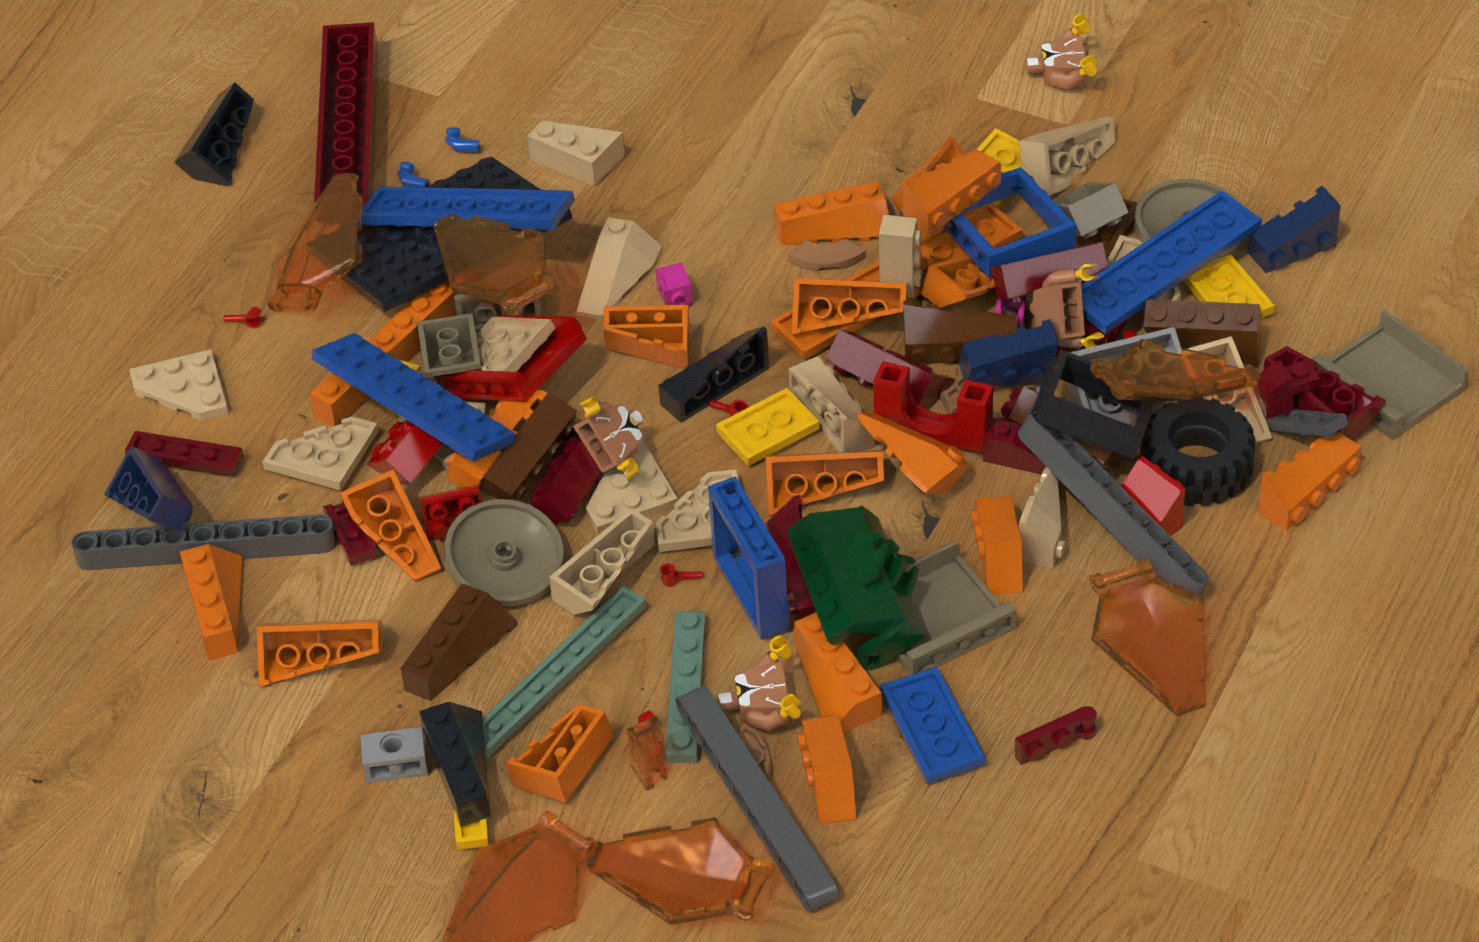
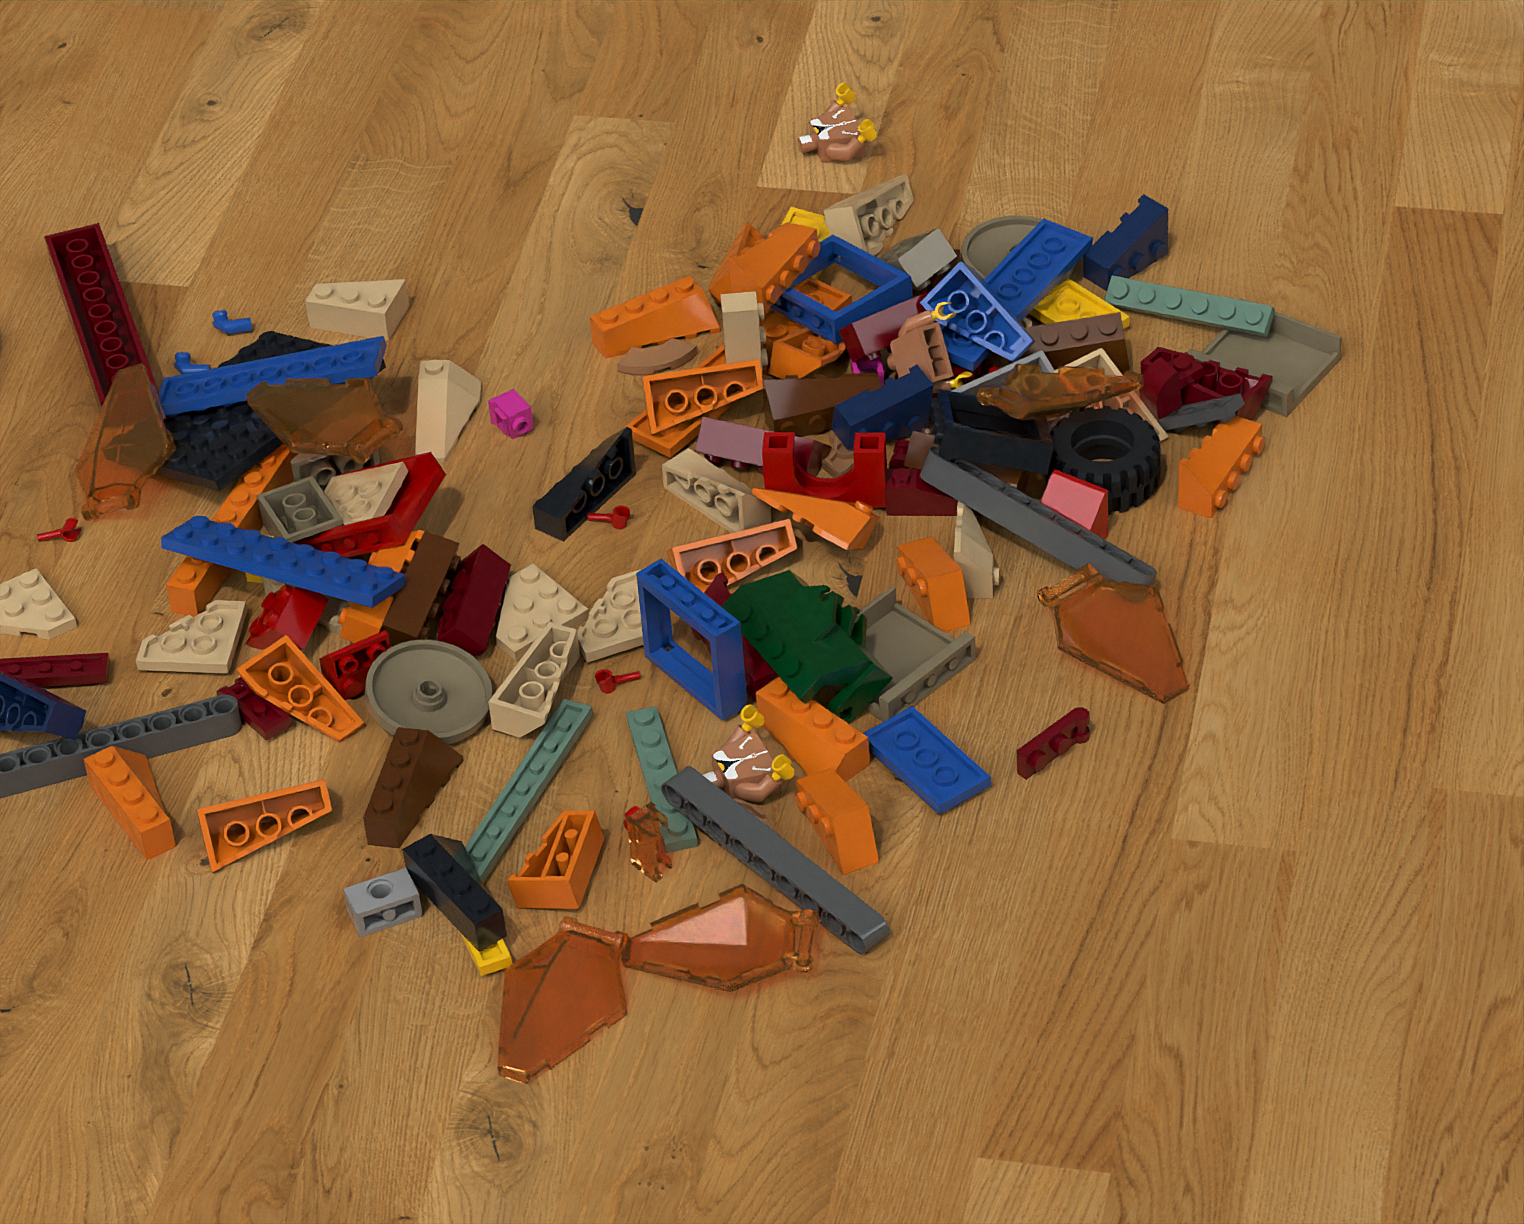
camera: 15 degrees left, 5 degrees down
(611, 435) = (504, 559): nougat torso -> none
(649, 332) = (503, 461): orange wedge -> none
(767, 426) = (657, 525): yellow plate -> none
(1124, 277) = (978, 312): none -> blue wedge
(1335, 307) = (1190, 306): none -> sand green plate

